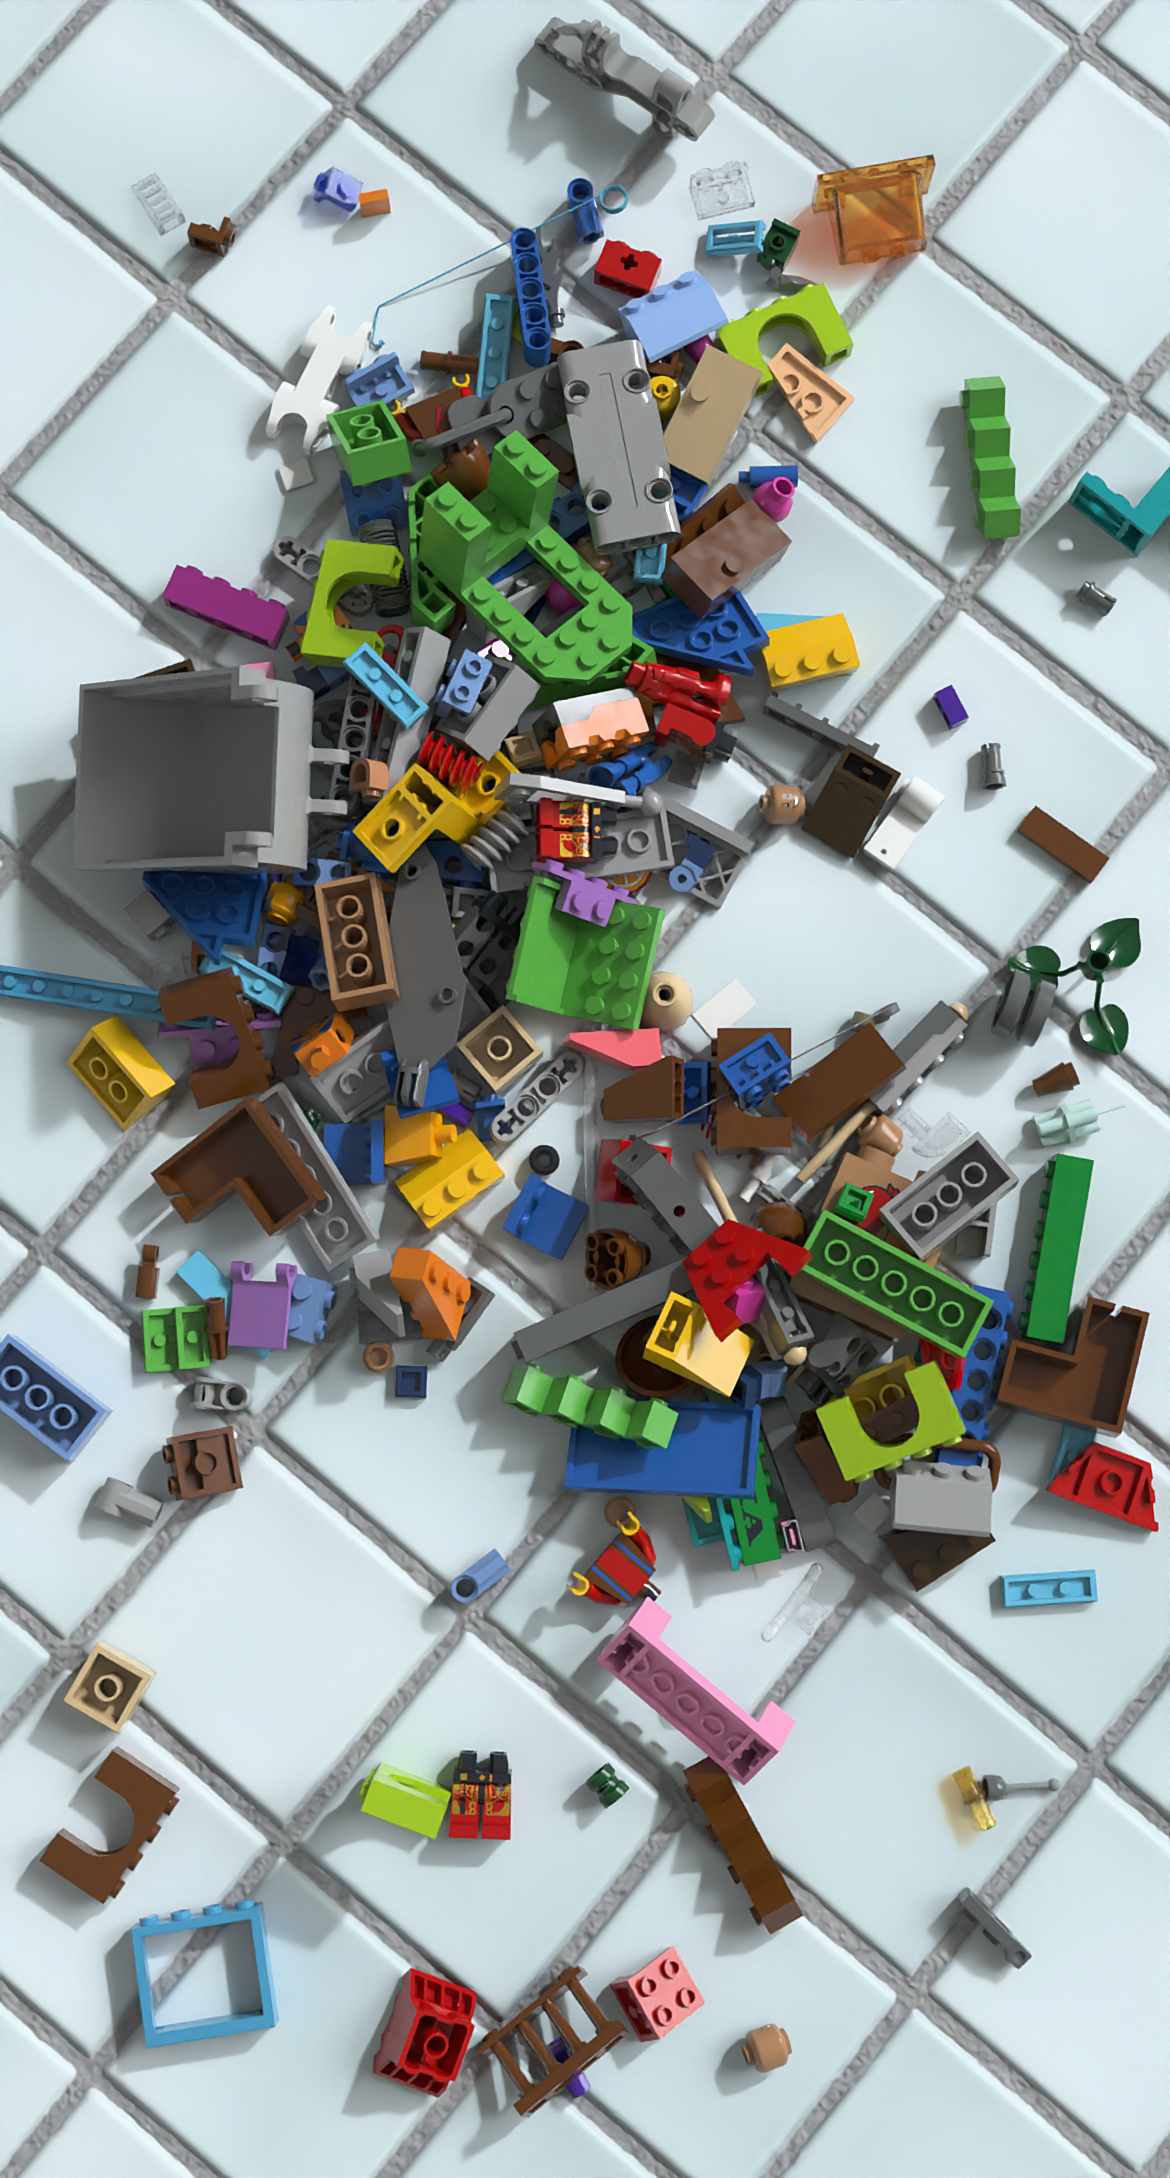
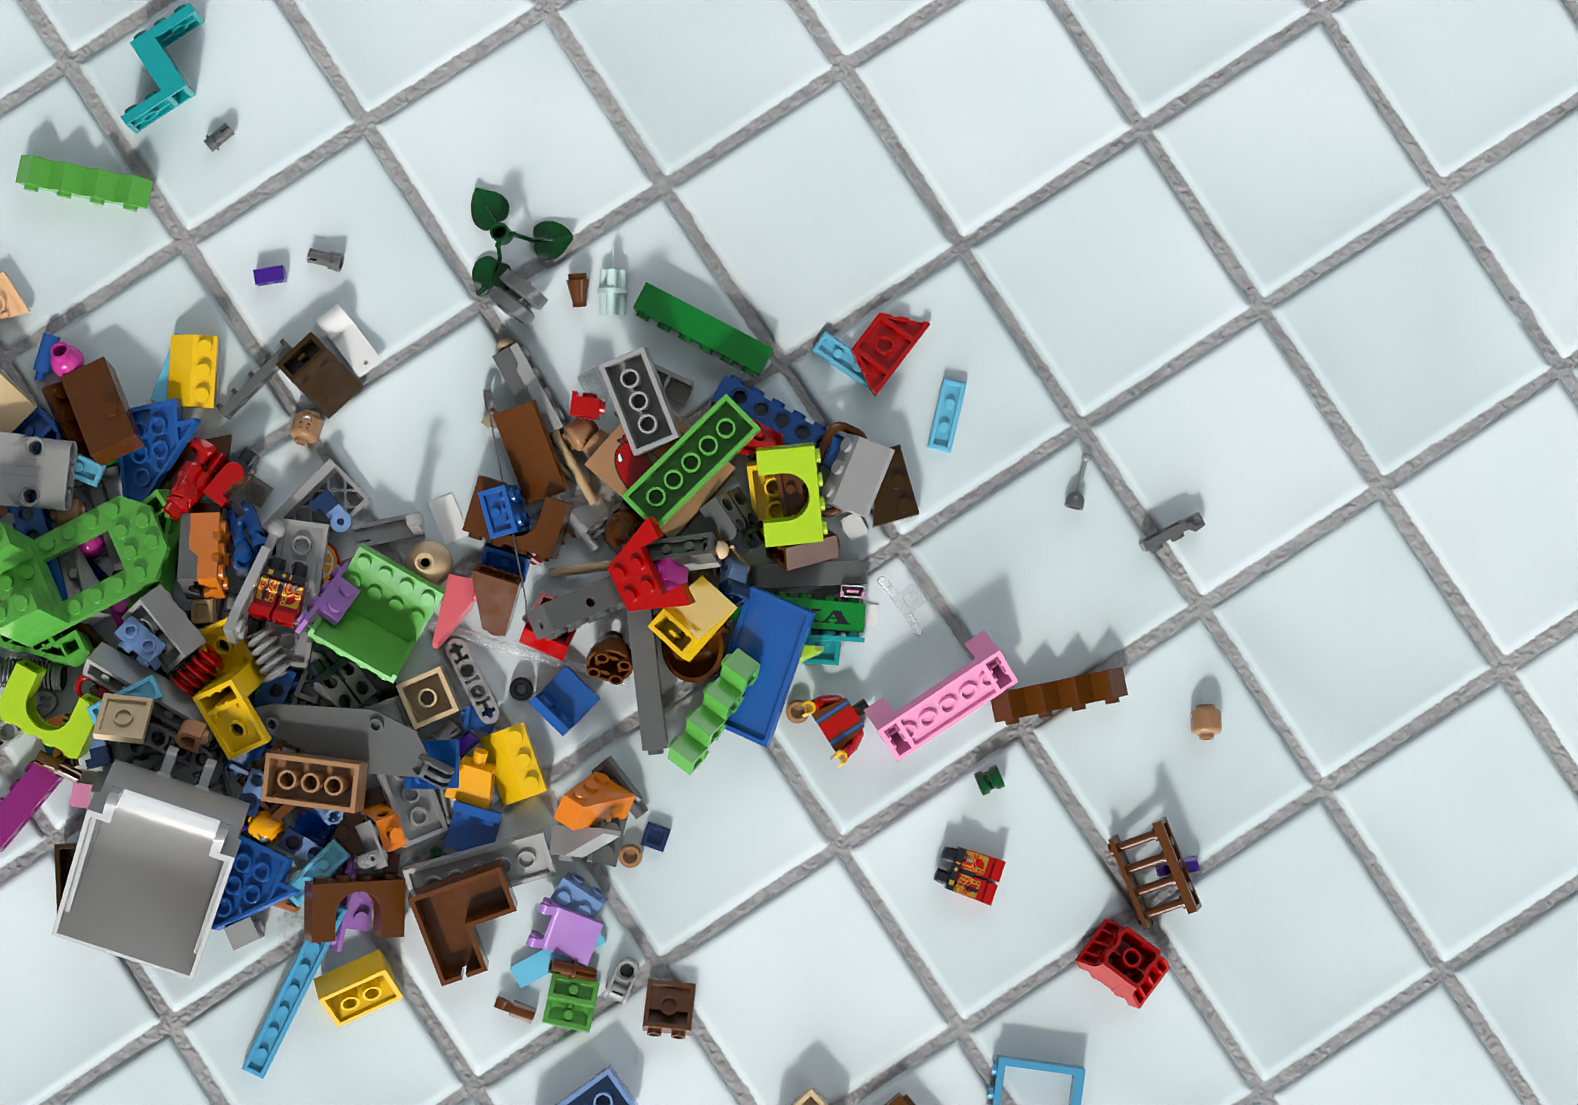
camera: 70 degrees left, 5 degrees up
(121, 1500) = (678, 1075): light grey piece -> none
(284, 635) = (57, 766): none -> reddish brown axle
(287, 1043) = (375, 855): none -> light grey hinge
(365, 687) = (123, 718): none -> tan tile
(405, 1799) = (953, 929): lime arch -> none
(482, 1574) = (812, 825): medium blue piece -> none
(658, 1996) = (1147, 788): bracket -> none
(690, 943) = (390, 529): none -> light grey hinge
(853, 1203) = (623, 471): green tile -> none
(918, 1133) = (587, 406): none -> red brick
(974, 1798) = (1078, 517): clear yellow axle -> none
(1063, 844) = (401, 225): reddish brown tile -> none
(1082, 1388) = (809, 340): reddish brown piece -> none

